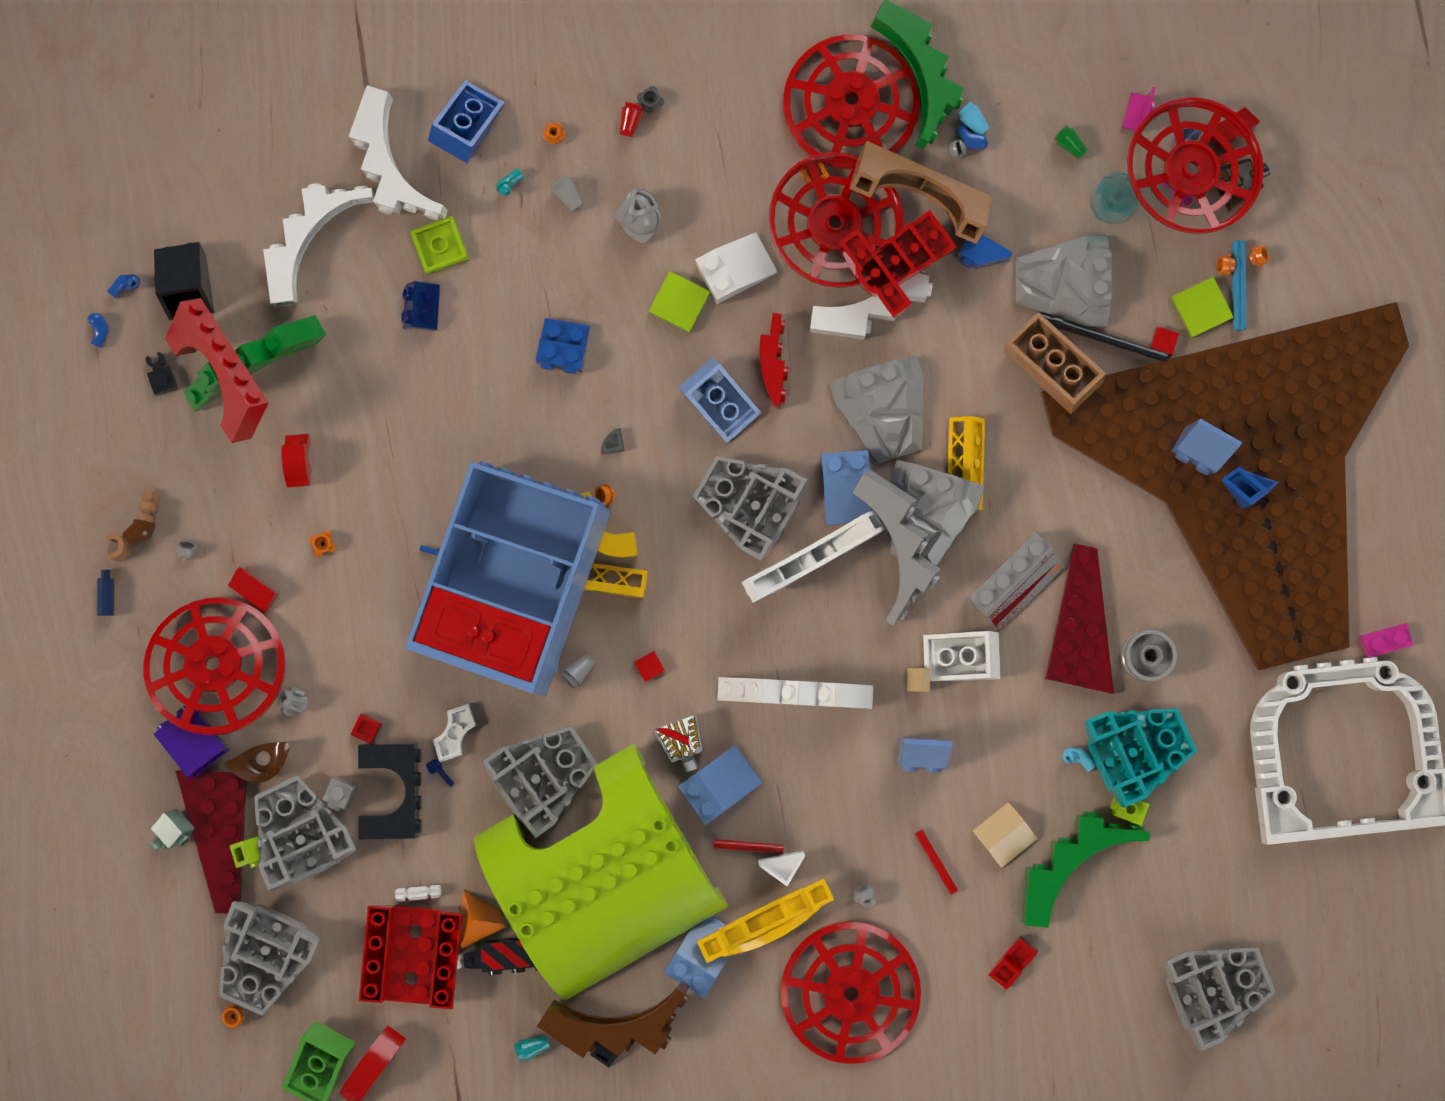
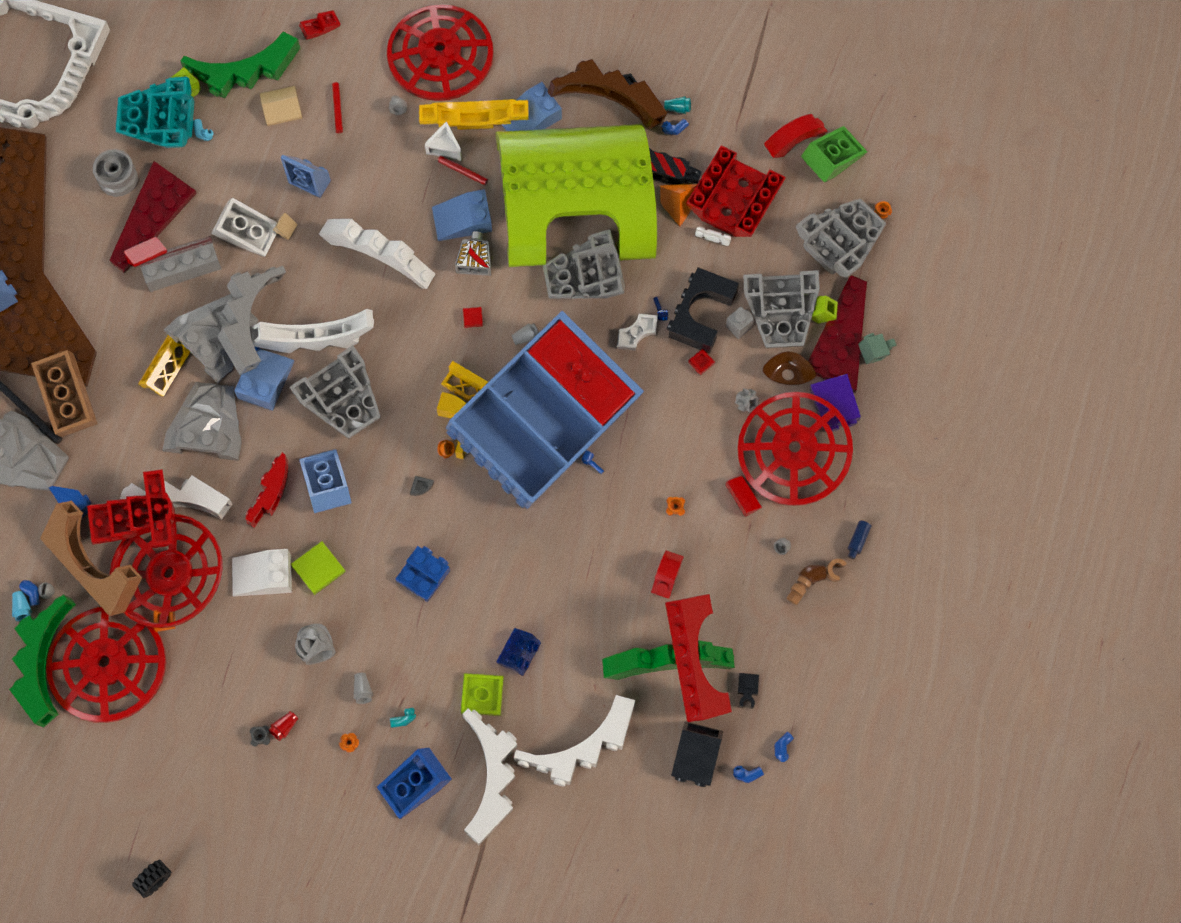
camera: 155 degrees left, 15 degrees down
(523, 1013) = (676, 129): none -> blue arm
(1059, 573) = (144, 252): none -> slope

